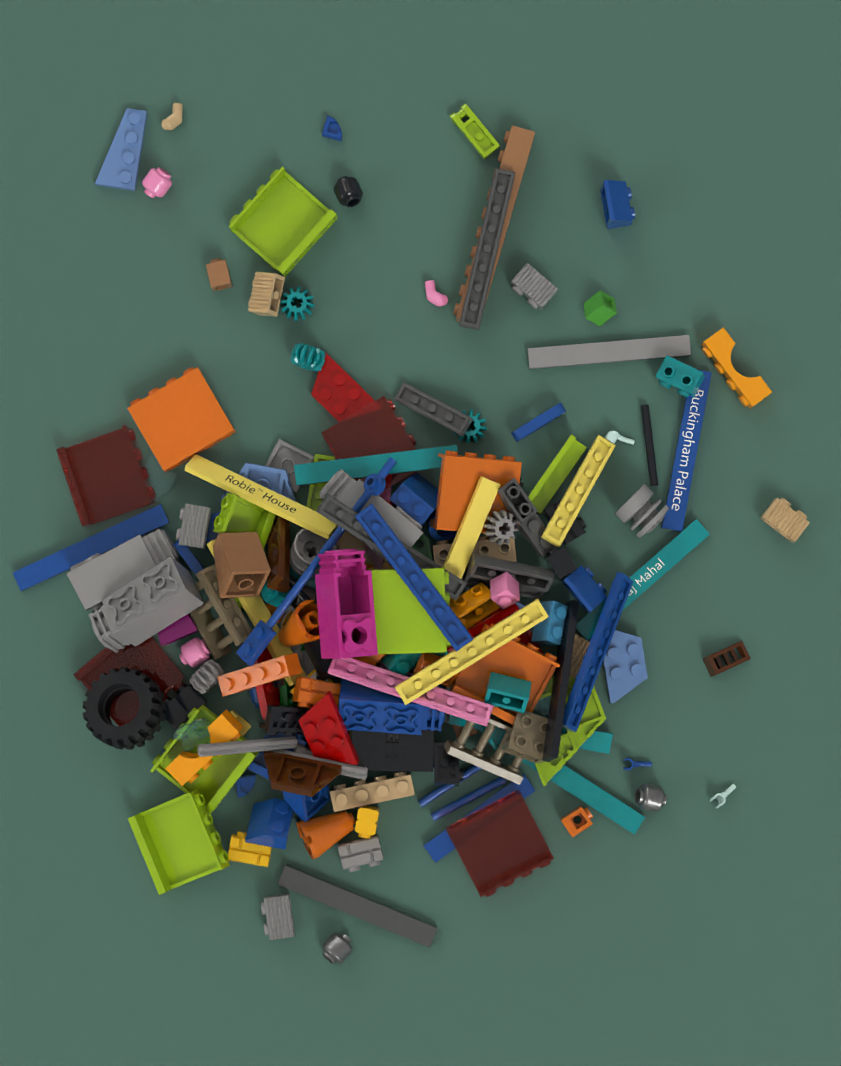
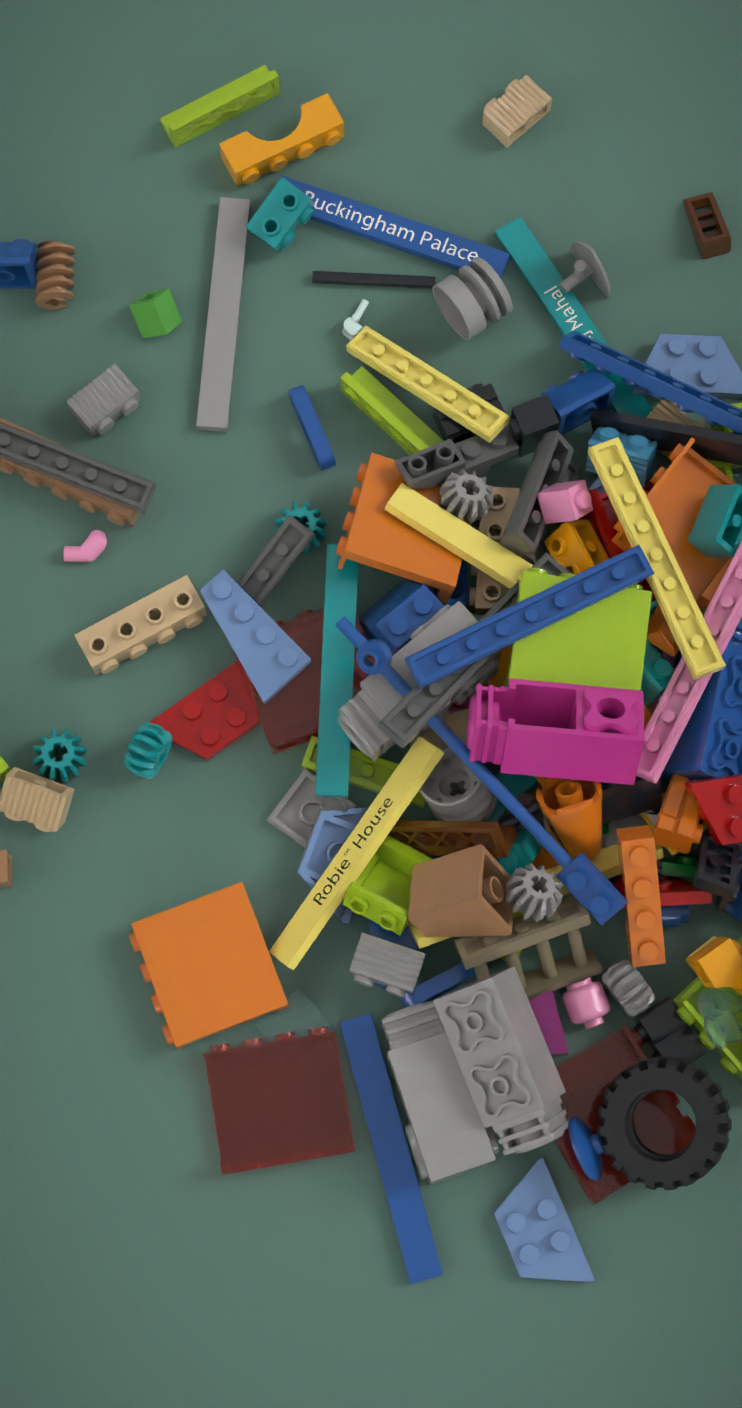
camera: 85 degrees left, 10 degrees down
(55, 645) = (540, 1230): none -> medium blue wing
(104, 663) = (586, 1147): none -> blue dish
(255, 603) = (533, 892): none -> light grey gear
(387, 411) = (259, 643): none -> medium blue wing
(389, 338) = (141, 625): none -> tan brick
(614, 238) = (54, 275): none -> medium nougat piece
(673, 578) = (586, 266): none -> light grey shield
(755, 323) = (221, 105): none -> lime fence

